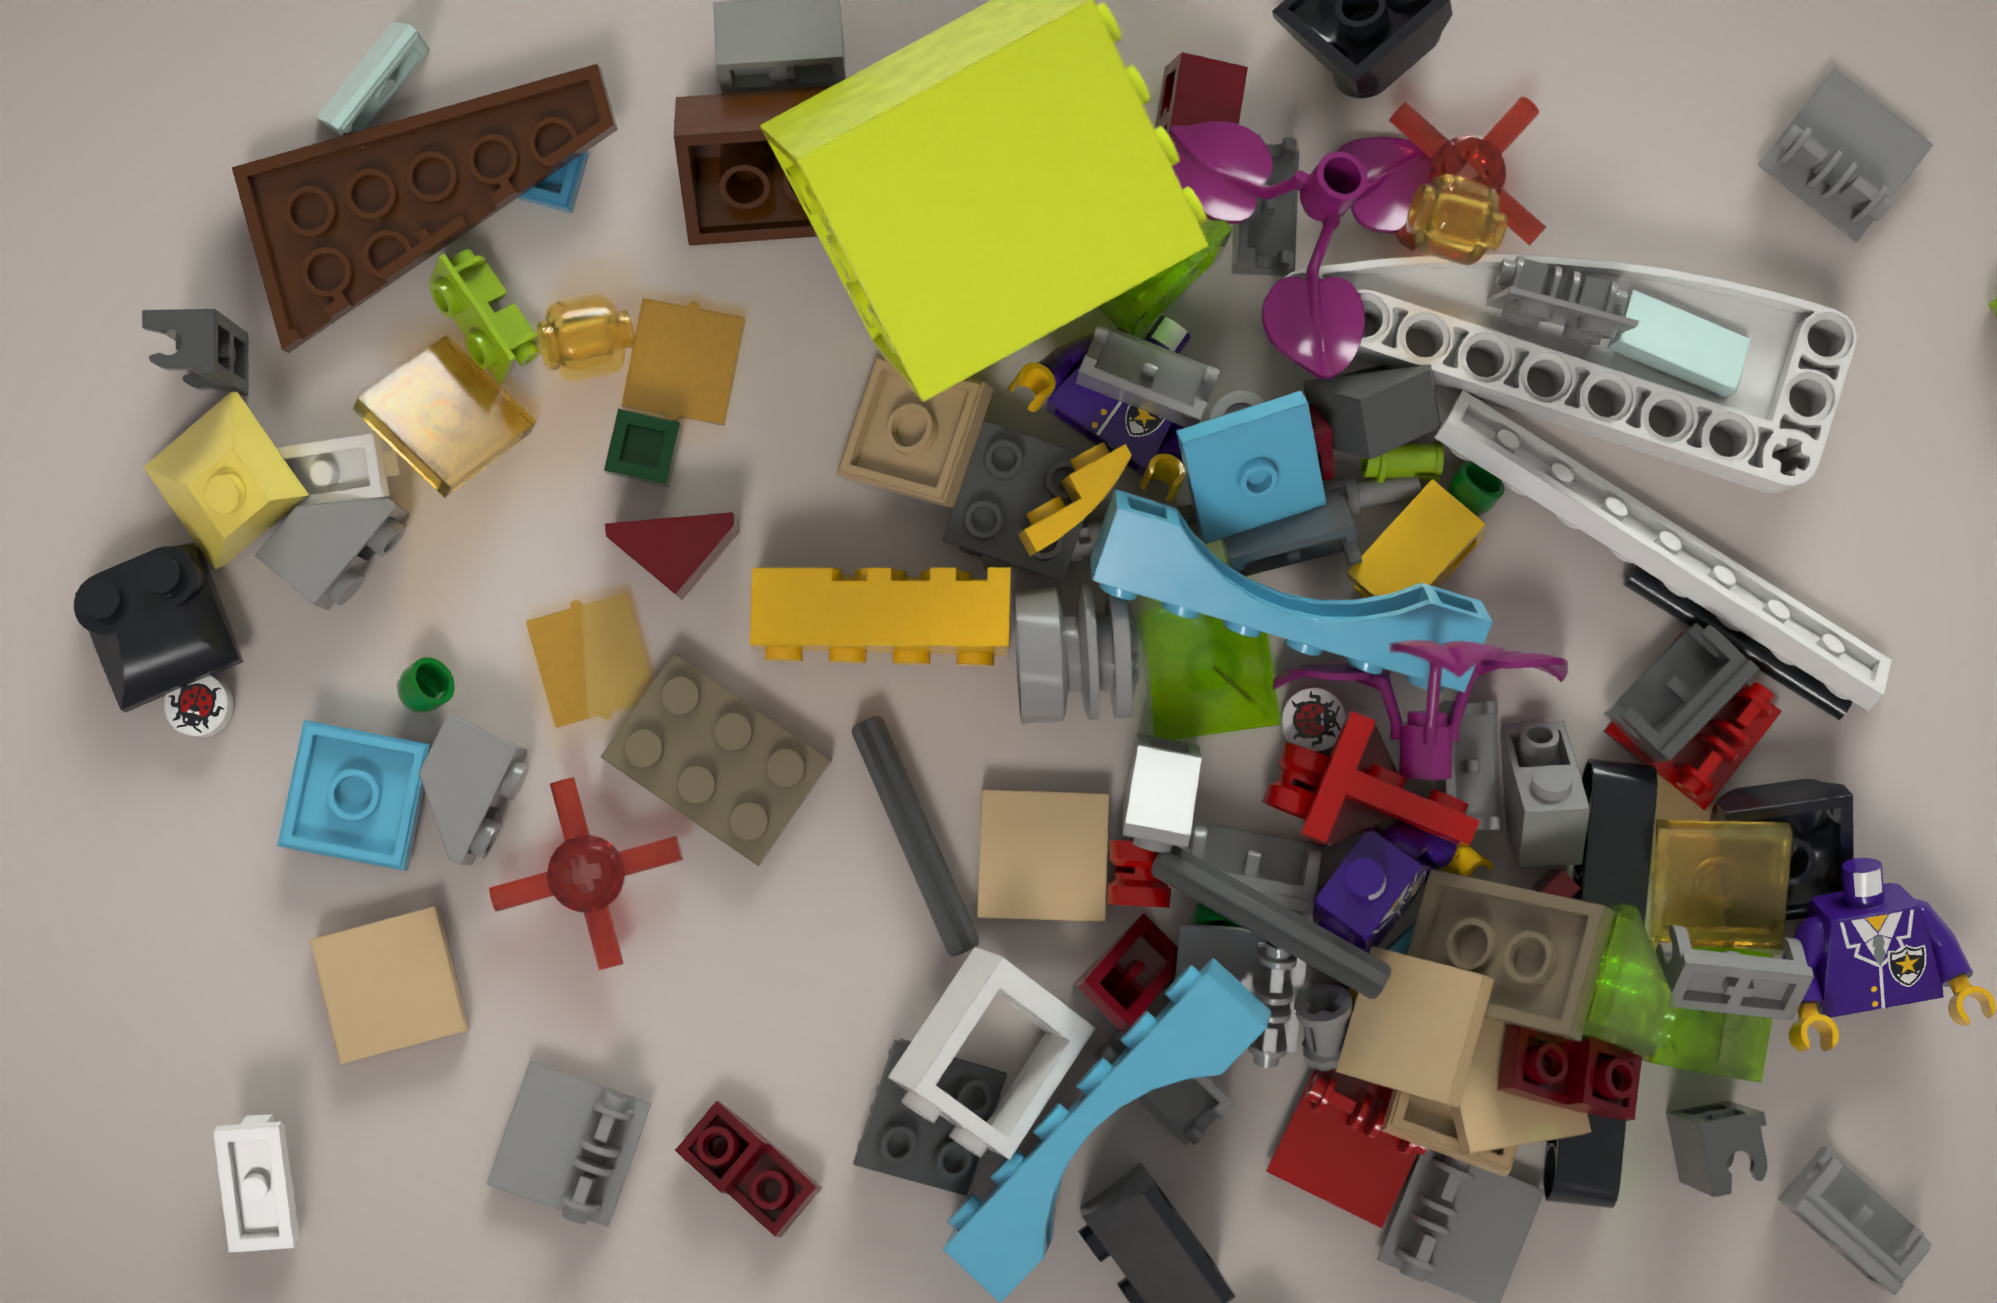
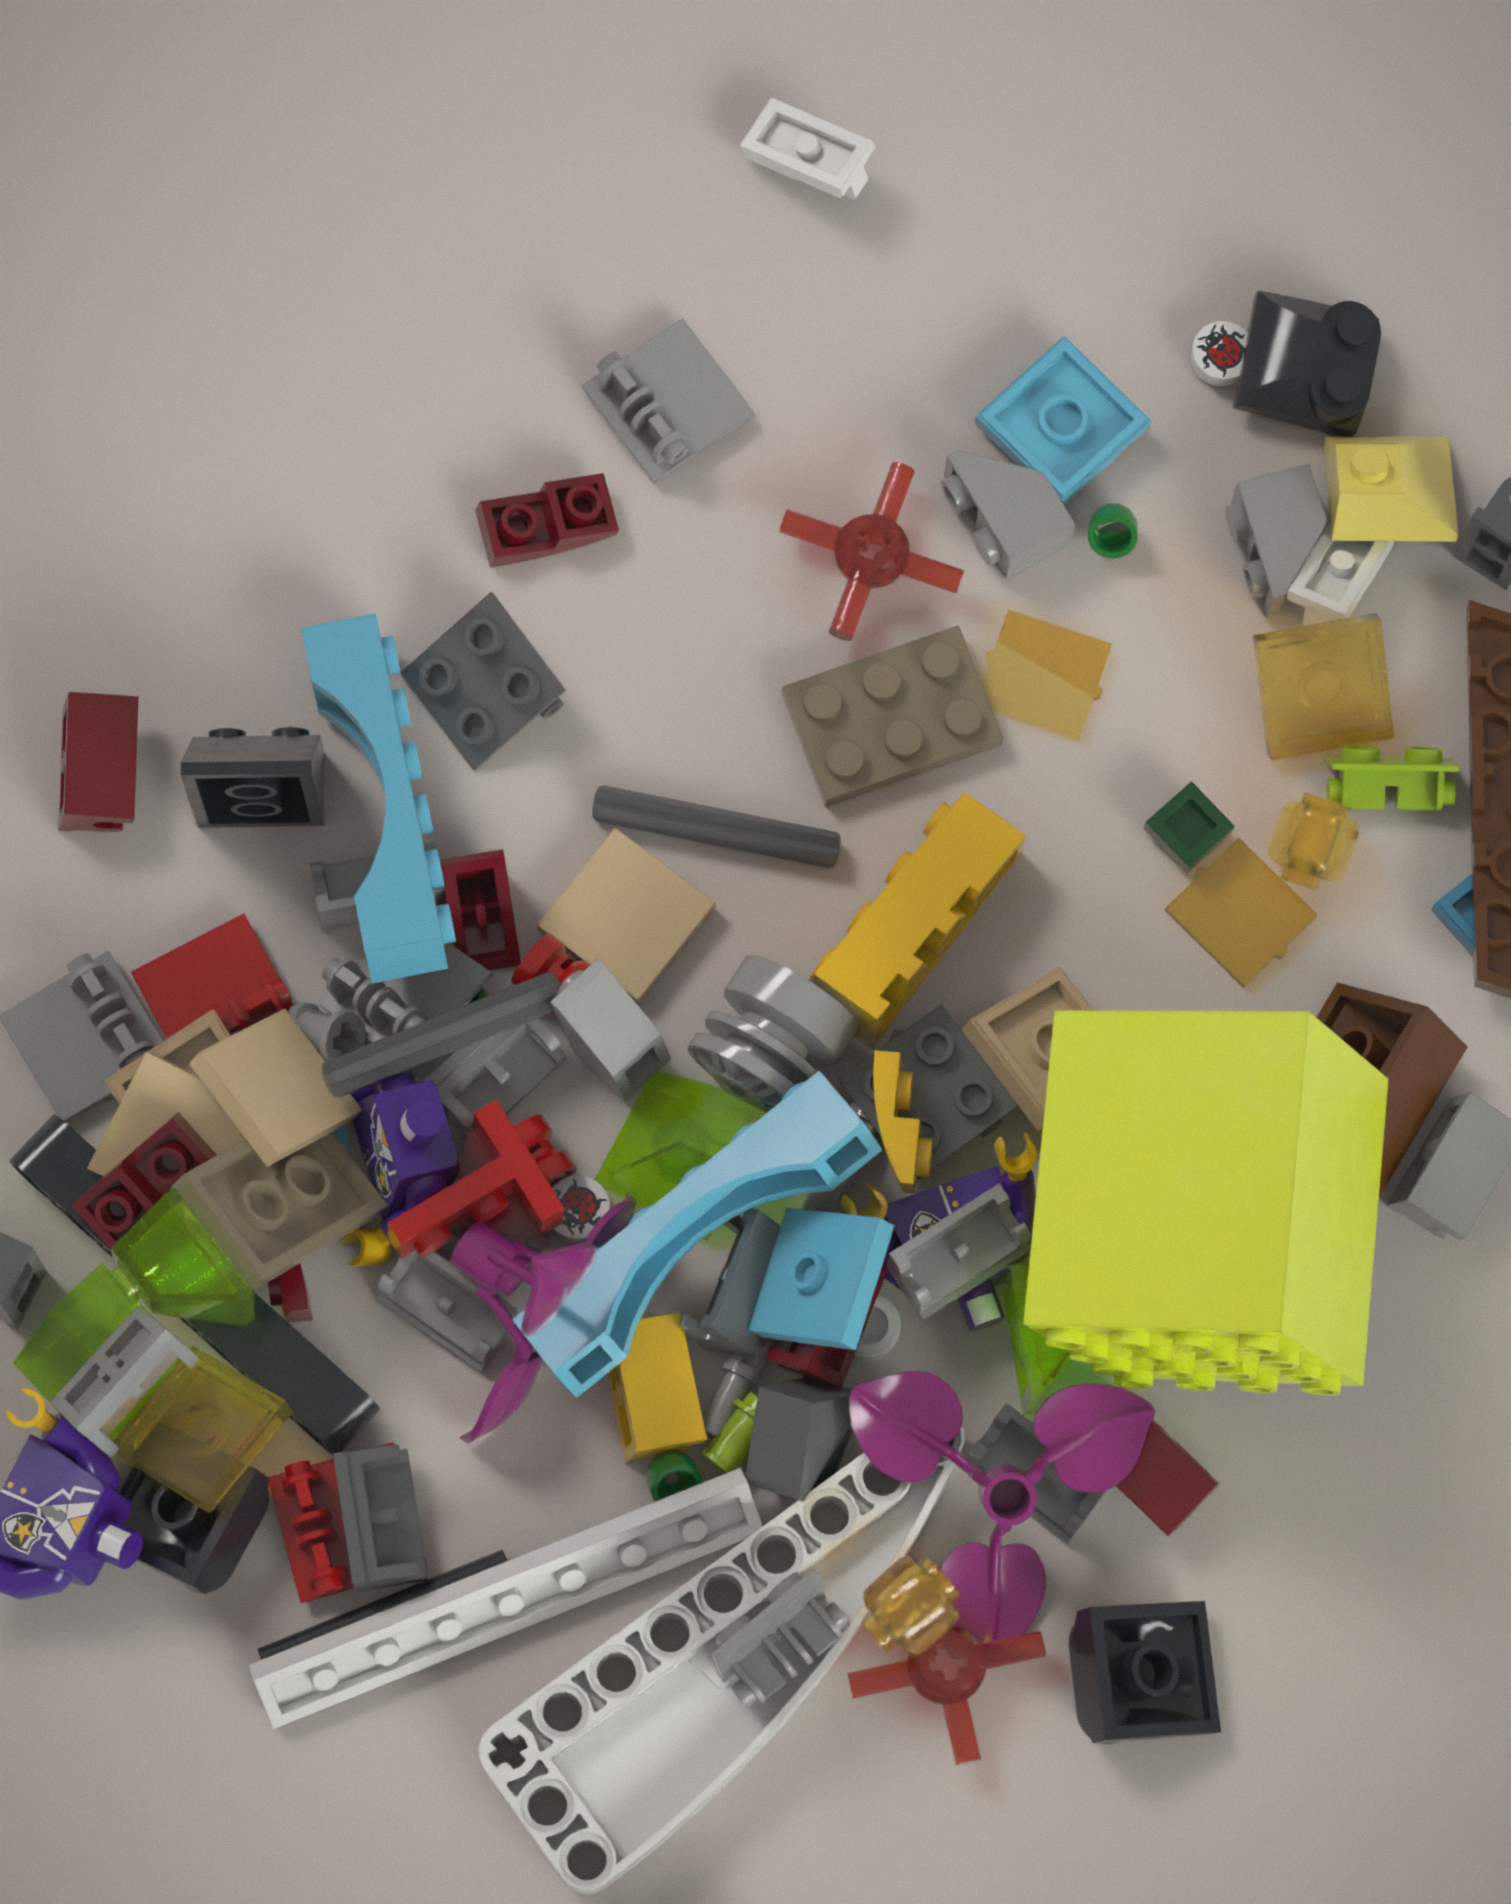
camera: 130 degrees right, 10 degrees down
(389, 984) = (893, 350): tan tile -> none
(676, 548) = (1084, 792): dark red slope -> none
(949, 1026) = (565, 781): white window -> none
(1543, 795) = (381, 1347): light grey slope -> none
(1682, 345) = (672, 1730): light aqua slope -> none

